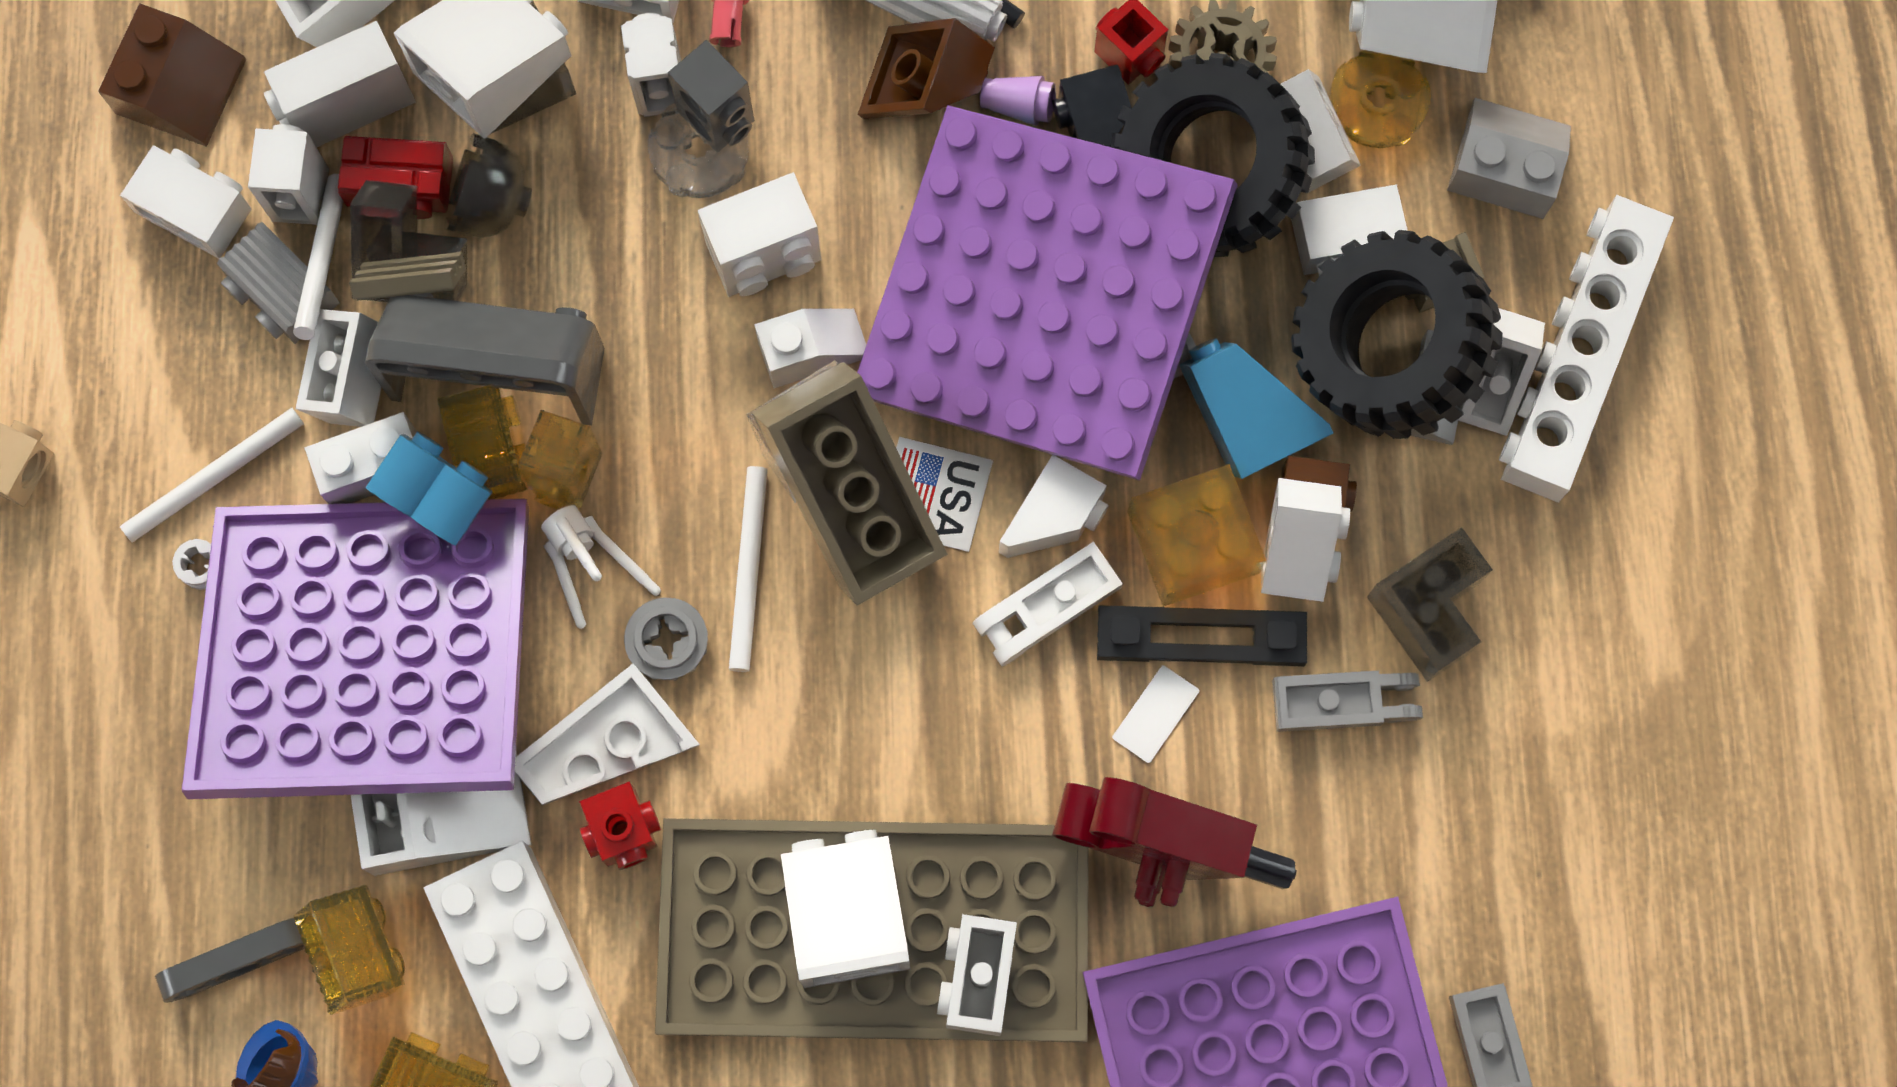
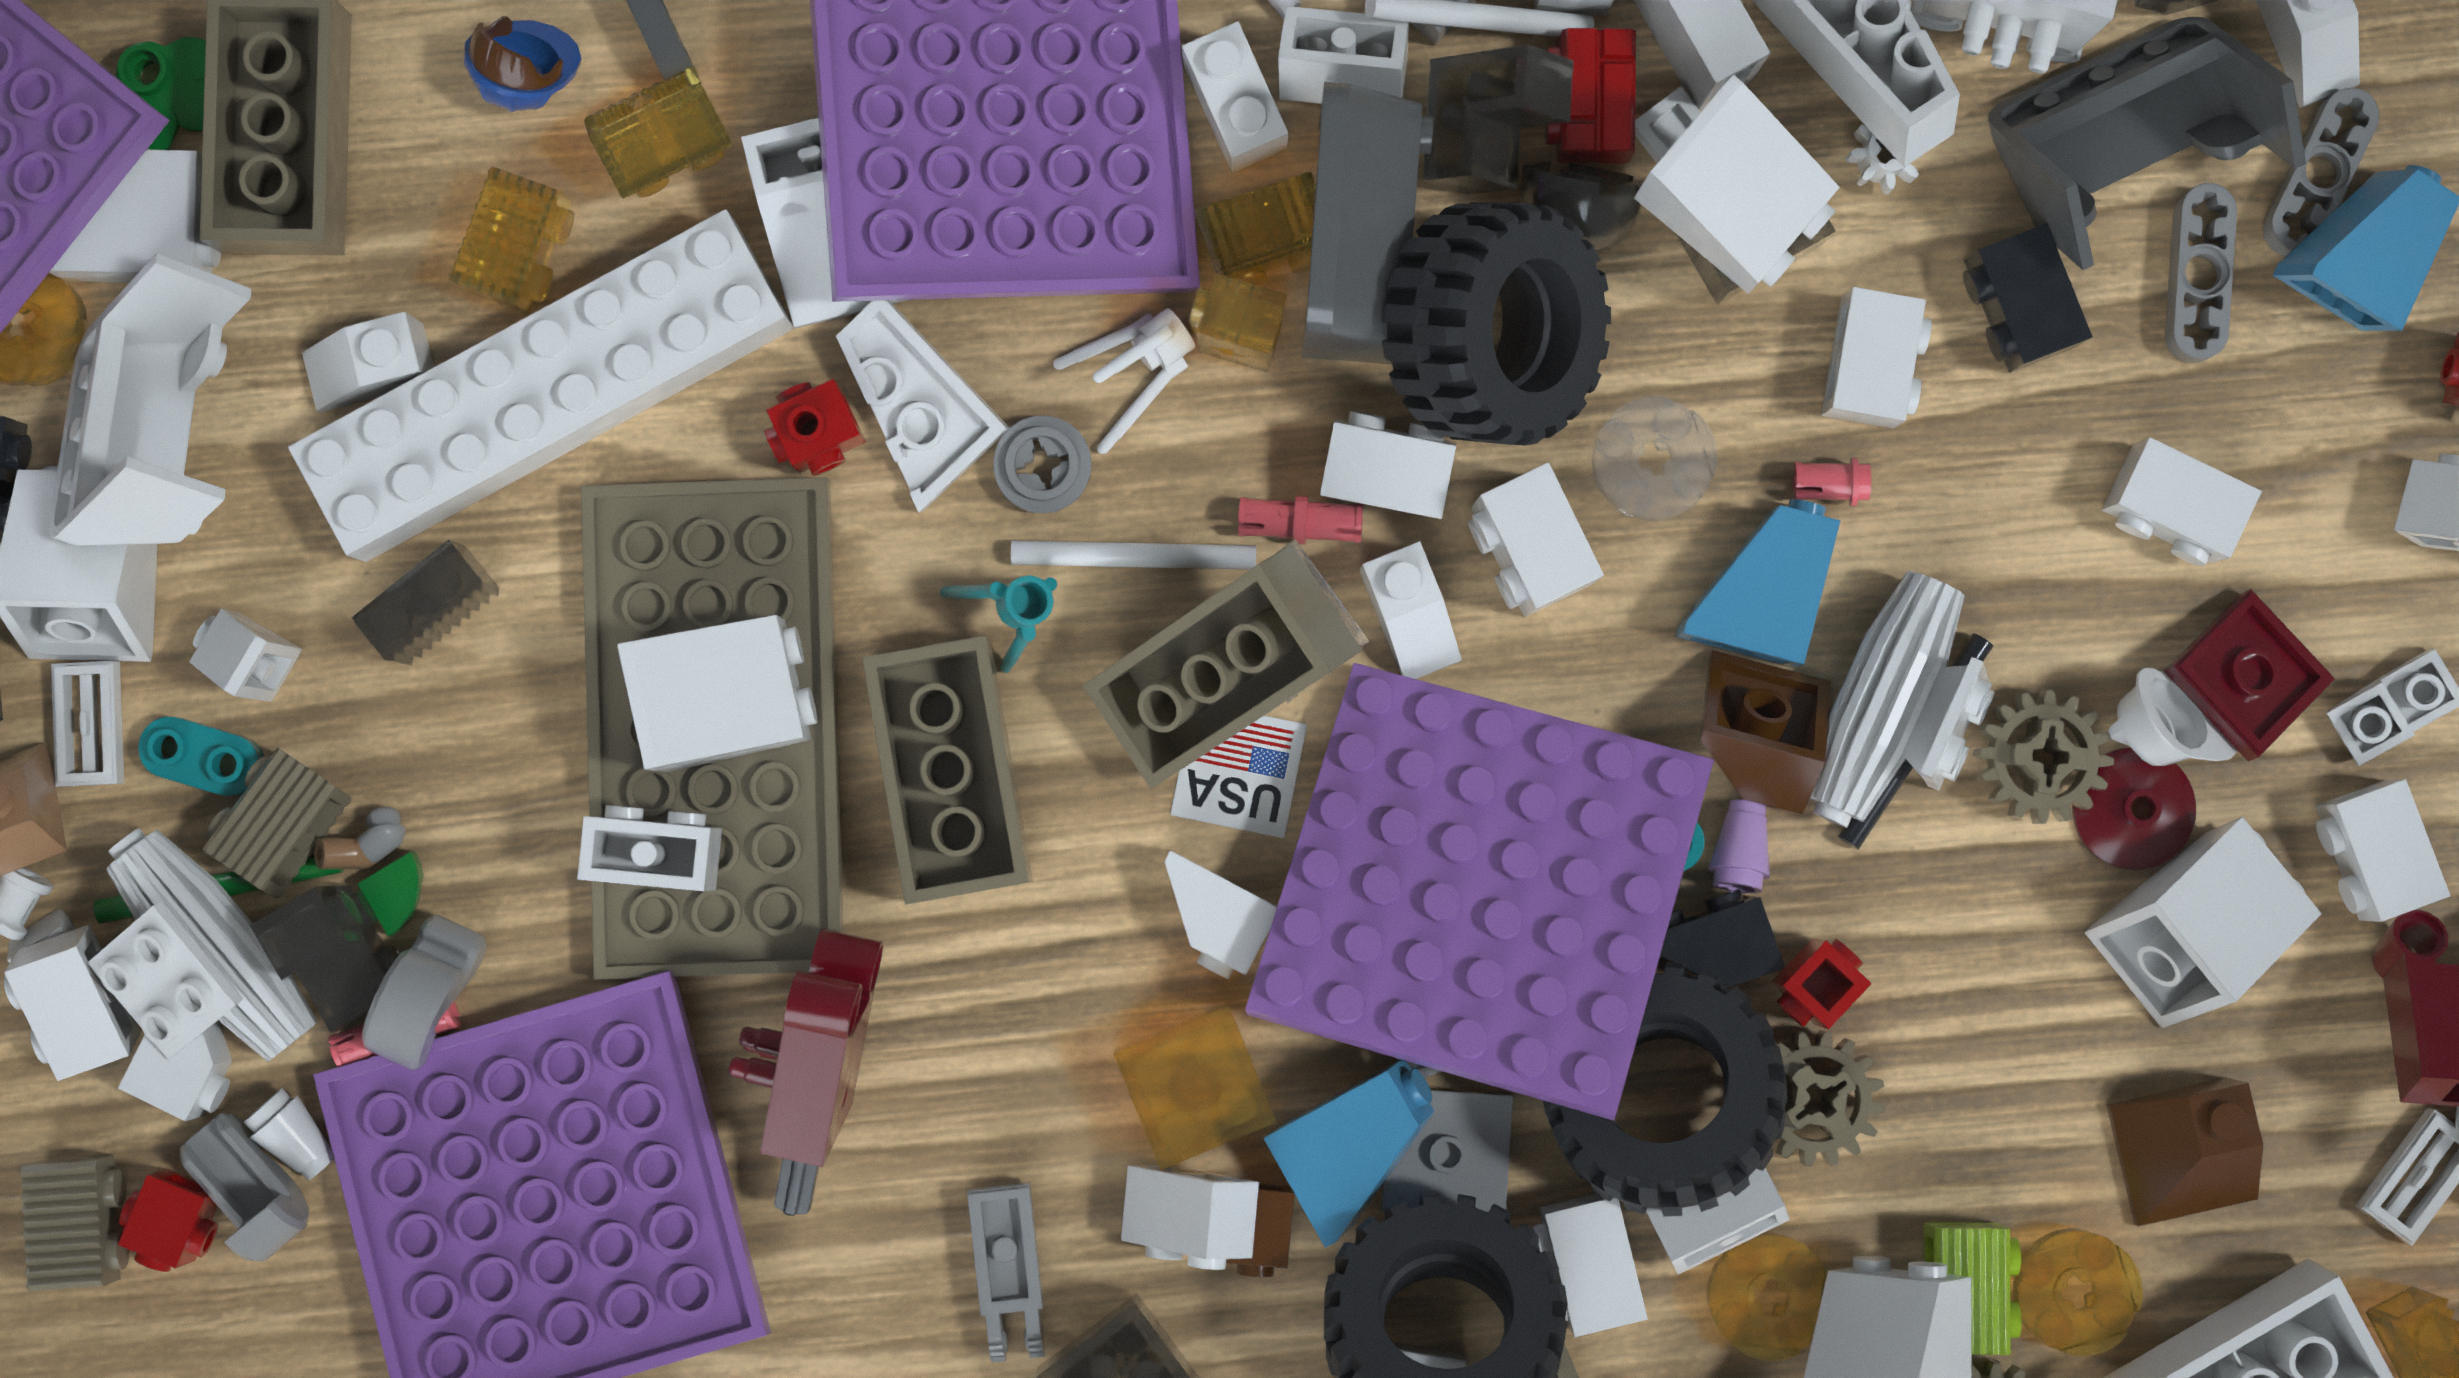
camera: 85 degrees right, 10 degrees up
(407, 276) = (1447, 122): dark tan tile -> none
(429, 118) = (1665, 123): none -> white tile
(429, 487) = (1191, 173): dark azure brick -> none
(578, 246) = (1444, 319): none -> black tyre
(649, 57) = (1750, 395): white brick -> none
(690, 351) = (1388, 465): none -> white brick
(712, 97) = (1701, 471): dark grey brick -> none
(728, 428) = (1300, 519): none -> coral pin
(785, 649) = (1019, 605): none -> teal plant
(810, 64) = (1769, 589): none -> dark azure slope
(922, 723) = (947, 769): none -> dark tan brick
(1049, 602) = (1107, 913): white plate -> none
(1155, 714) = (985, 1045): white sticker -> none
(1261, 327) = (1457, 1152): none -> light grey plate
(1277, 636) = (1079, 1186): black container -> none

